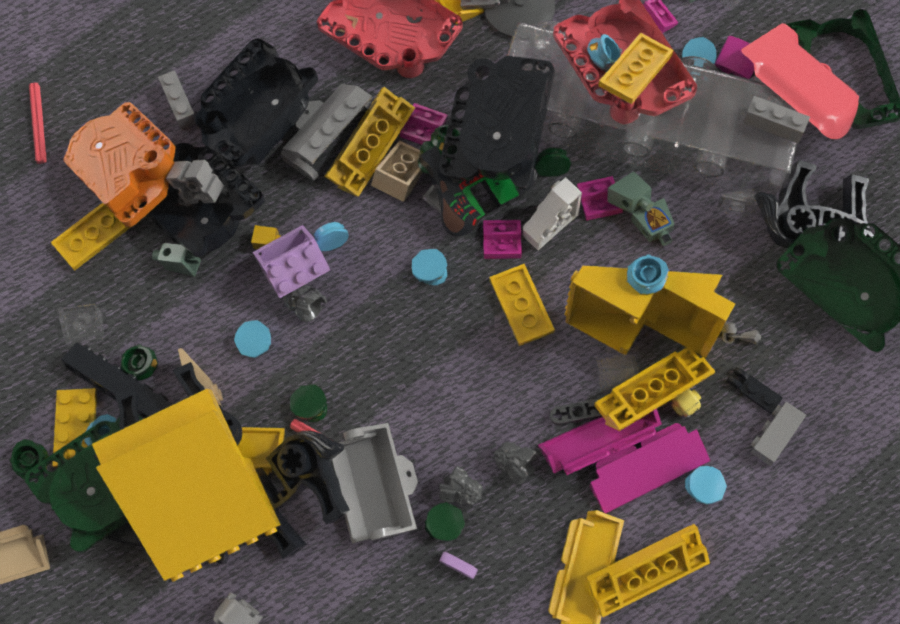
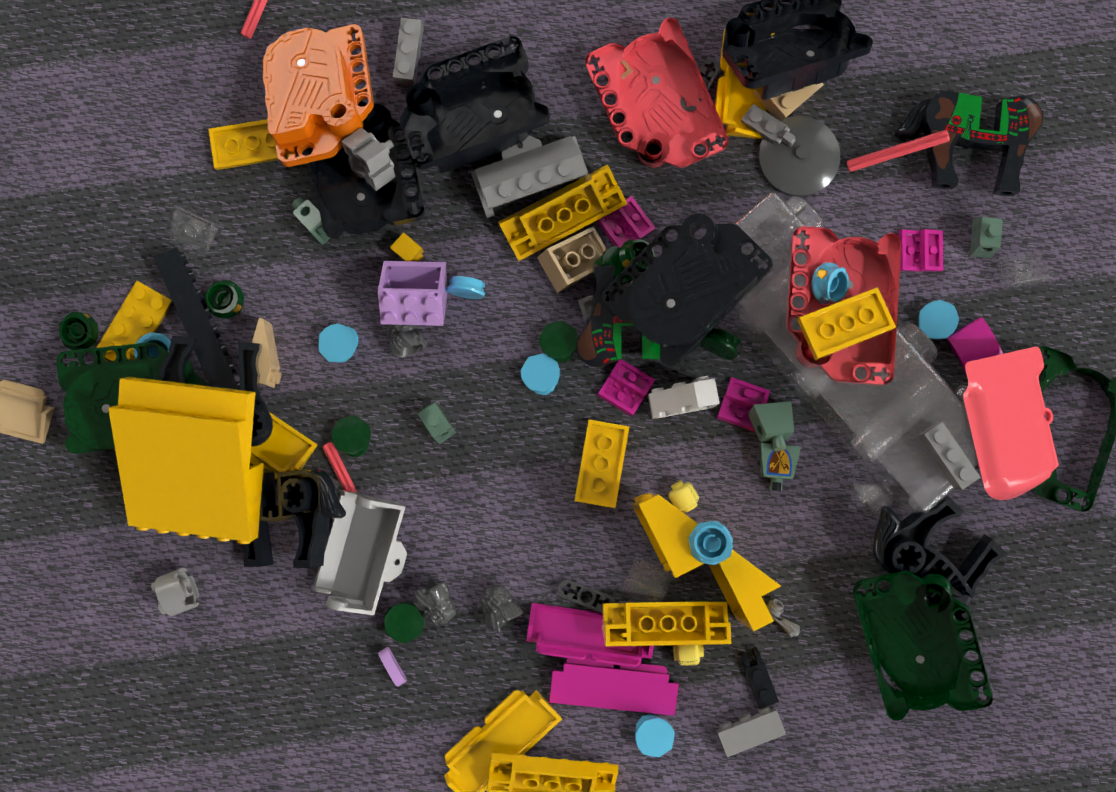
camera: 30 degrees right, 15 degrees up
(370, 348) = (436, 422): none -> sand green torso
(428, 234) = (558, 341): none -> dark green hat

